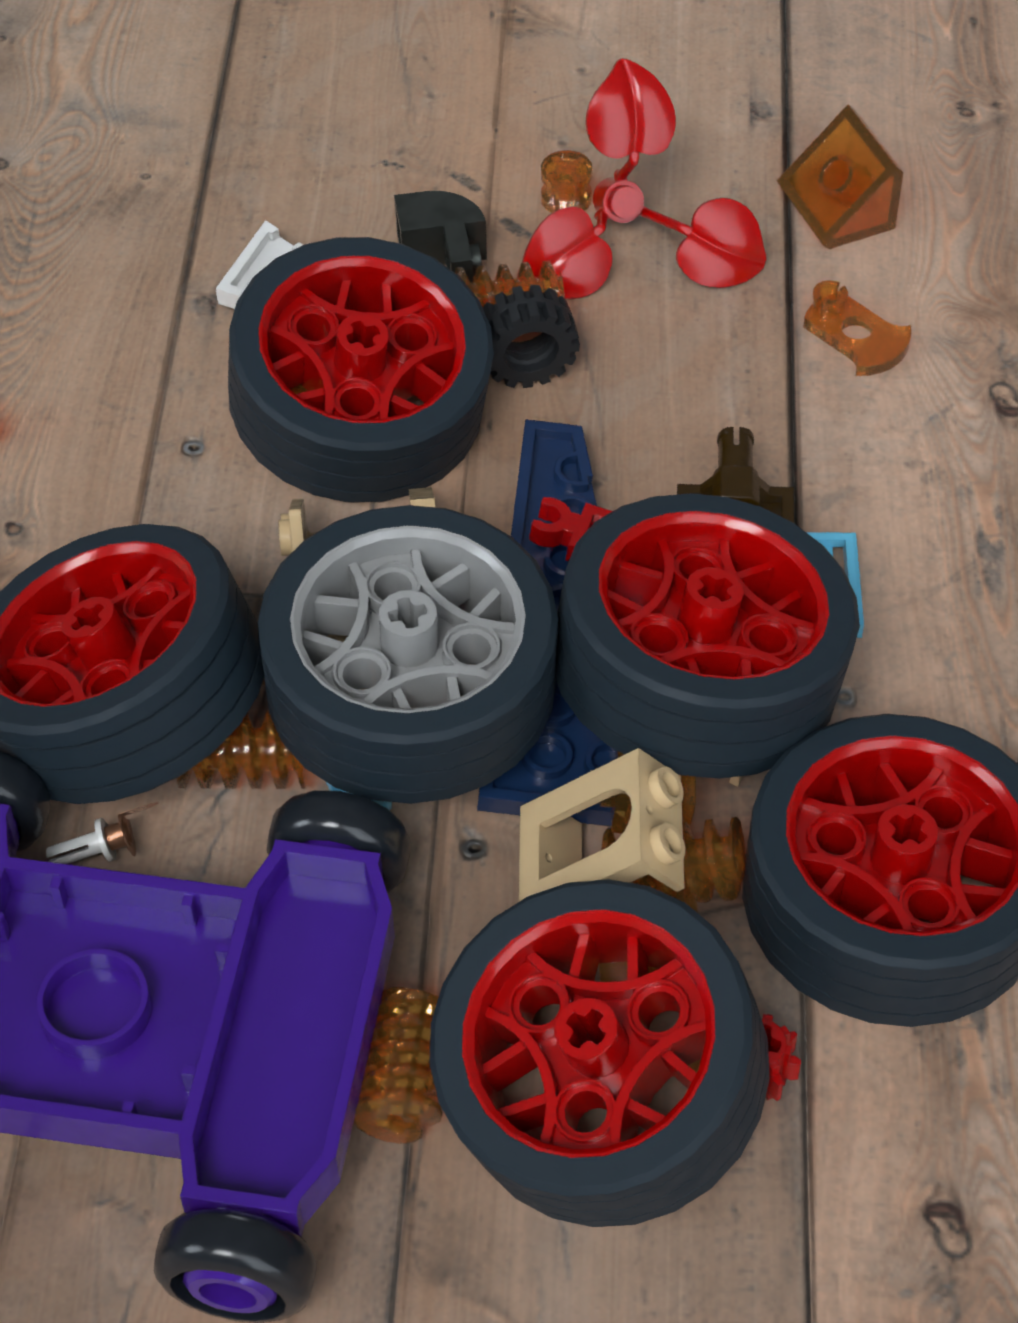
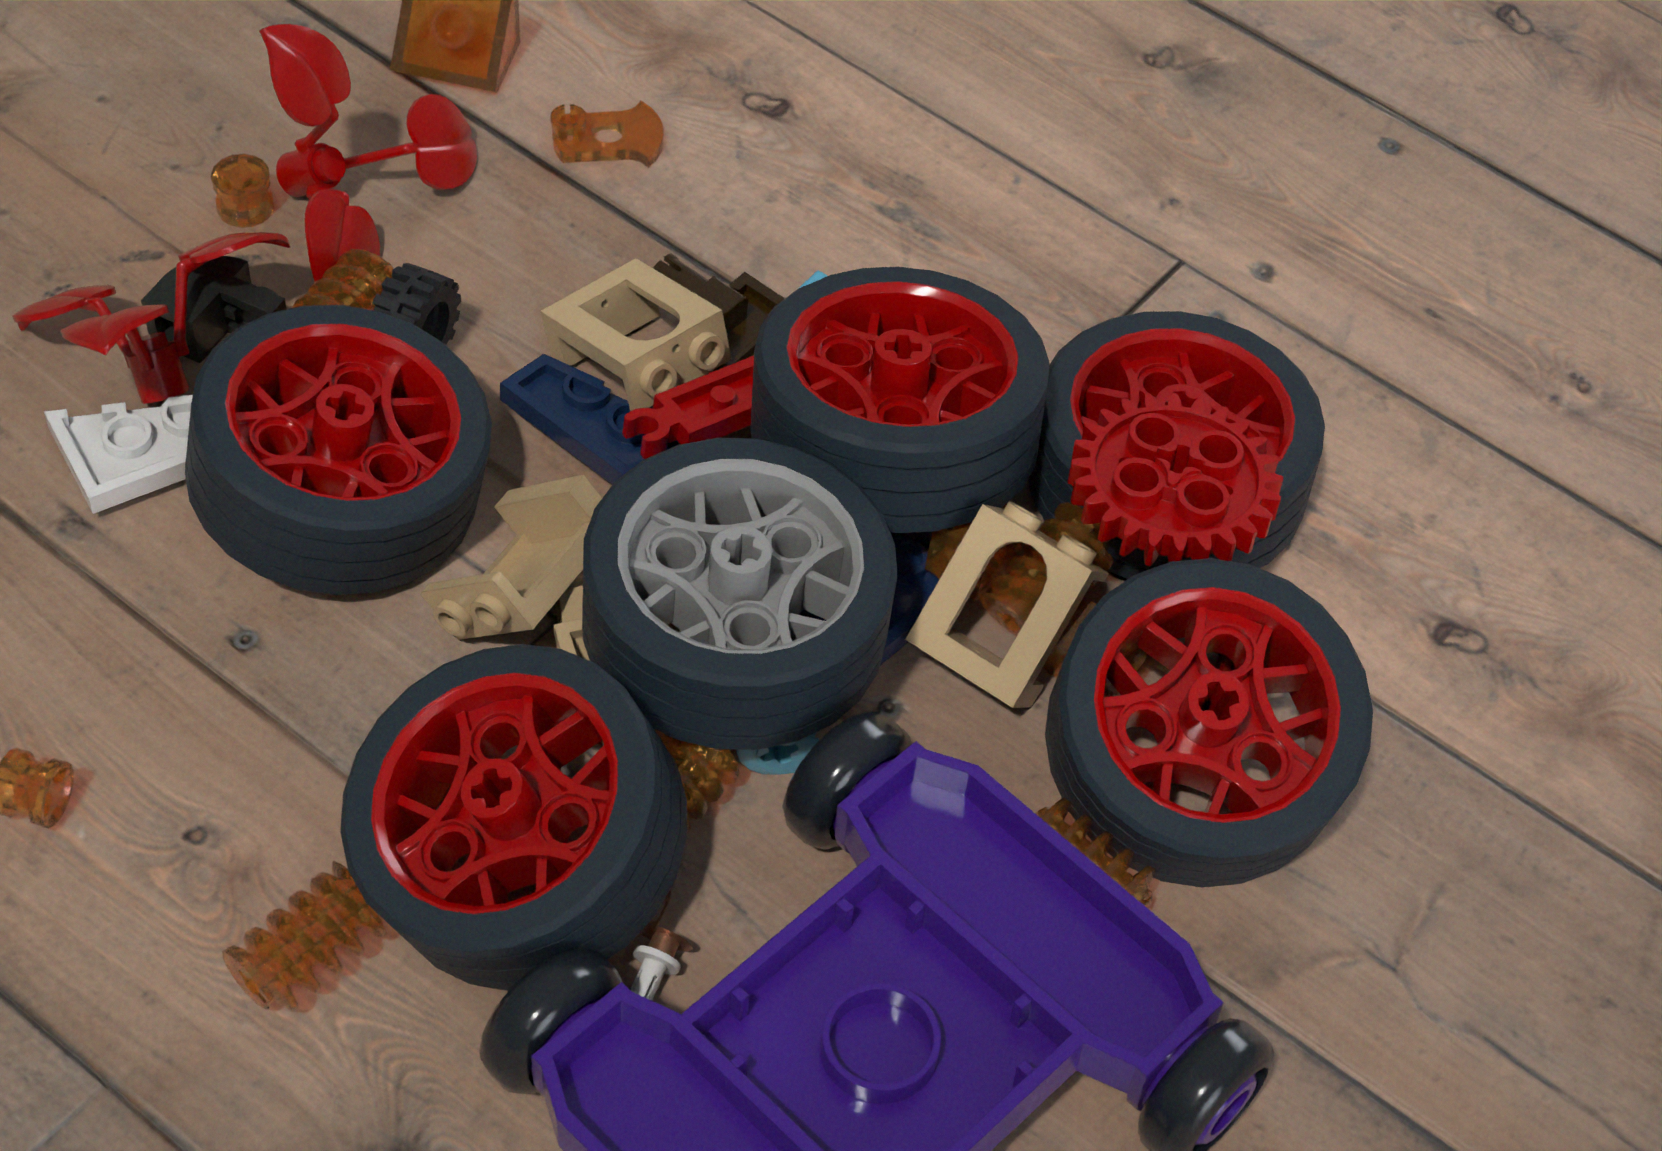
camera: 60 degrees left, 0 degrees up
(357, 225) = (151, 358): none -> red plant
(632, 431) = (601, 314): none -> tan panel
(845, 846) = (1174, 480): none -> red gear

